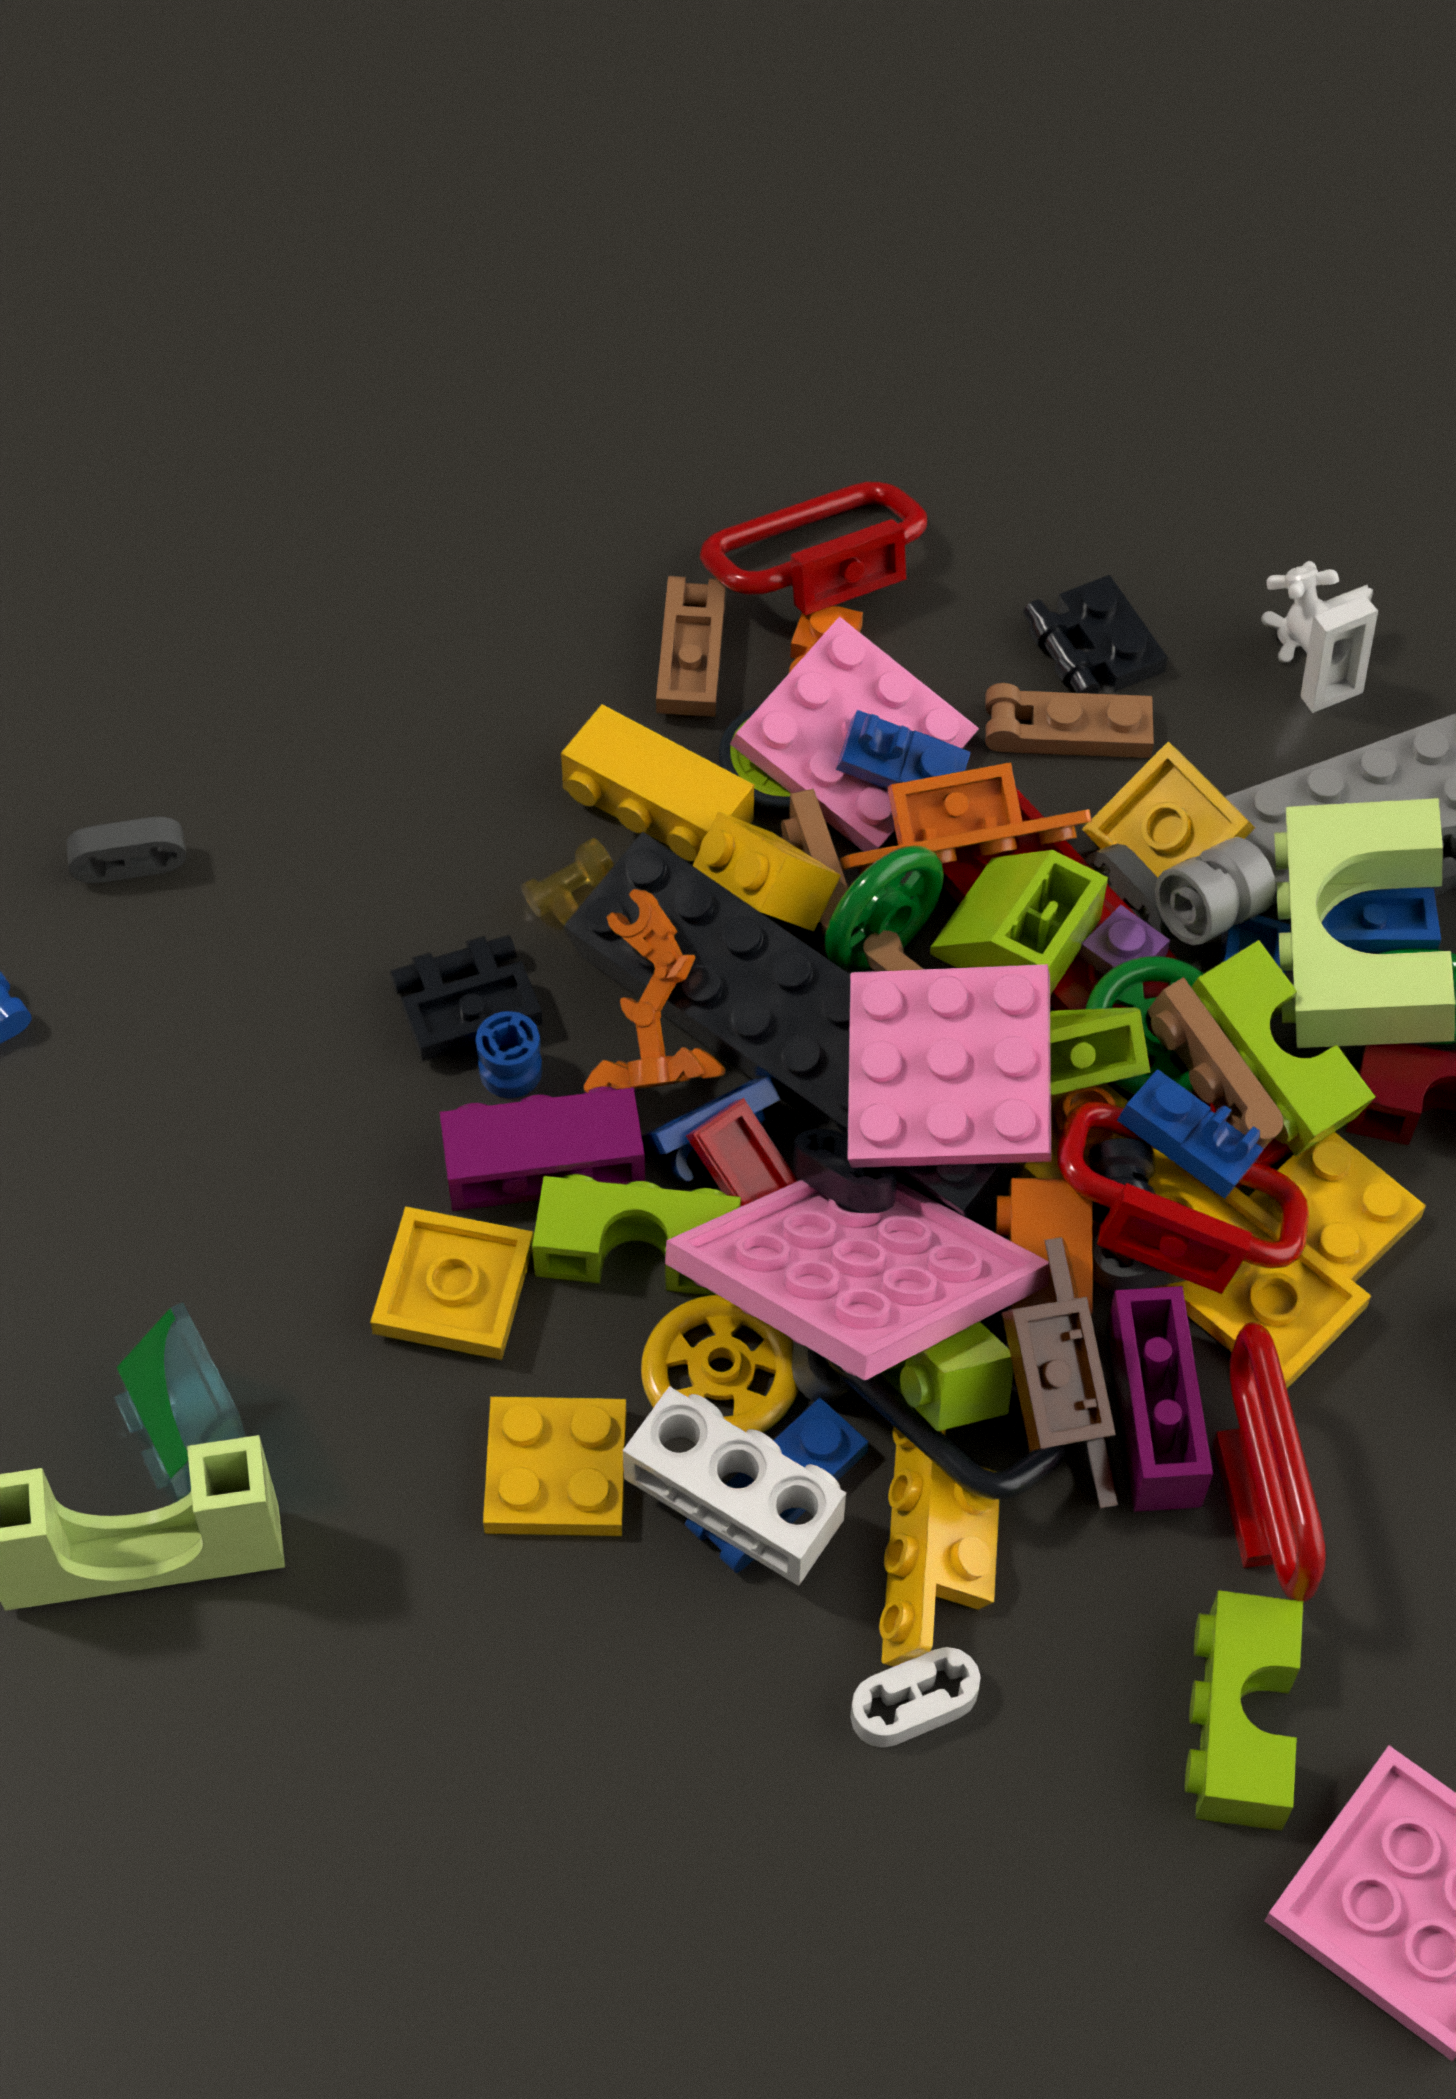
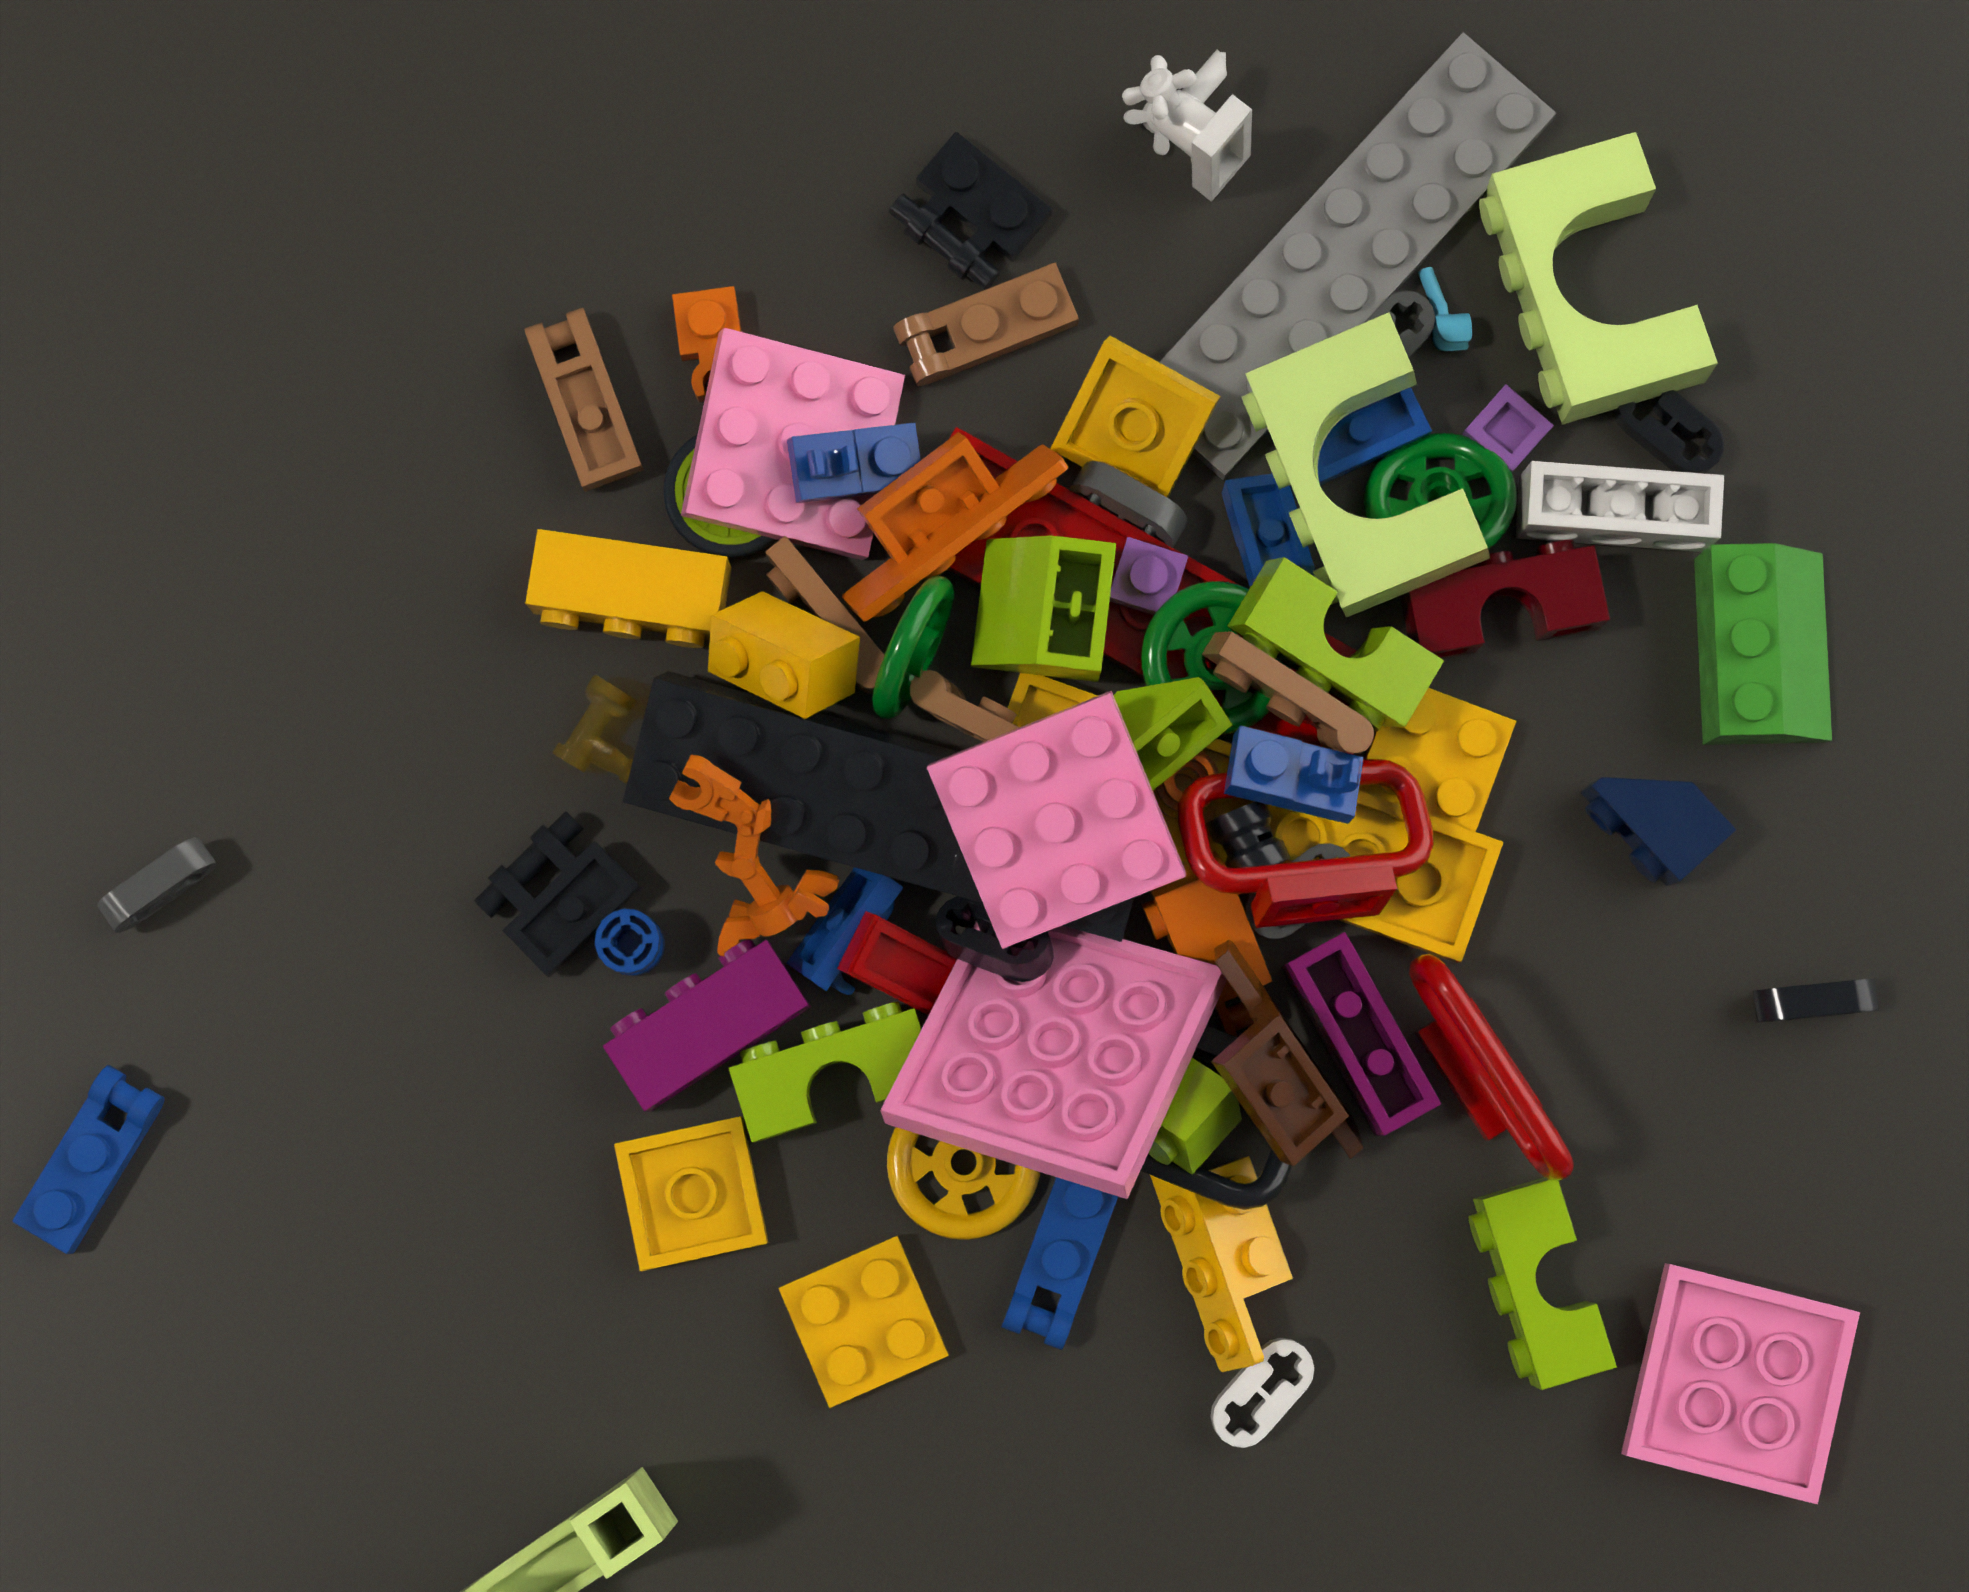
camera: 25 degrees left, 25 degrees up
(175, 1398) = (521, 1436): clear light blue slope -> none
(739, 1516) = (1059, 1320): white brick -> none
(832, 569) = (695, 253): red bar -> none
(1215, 890) = (1215, 487): light grey wheel -> none

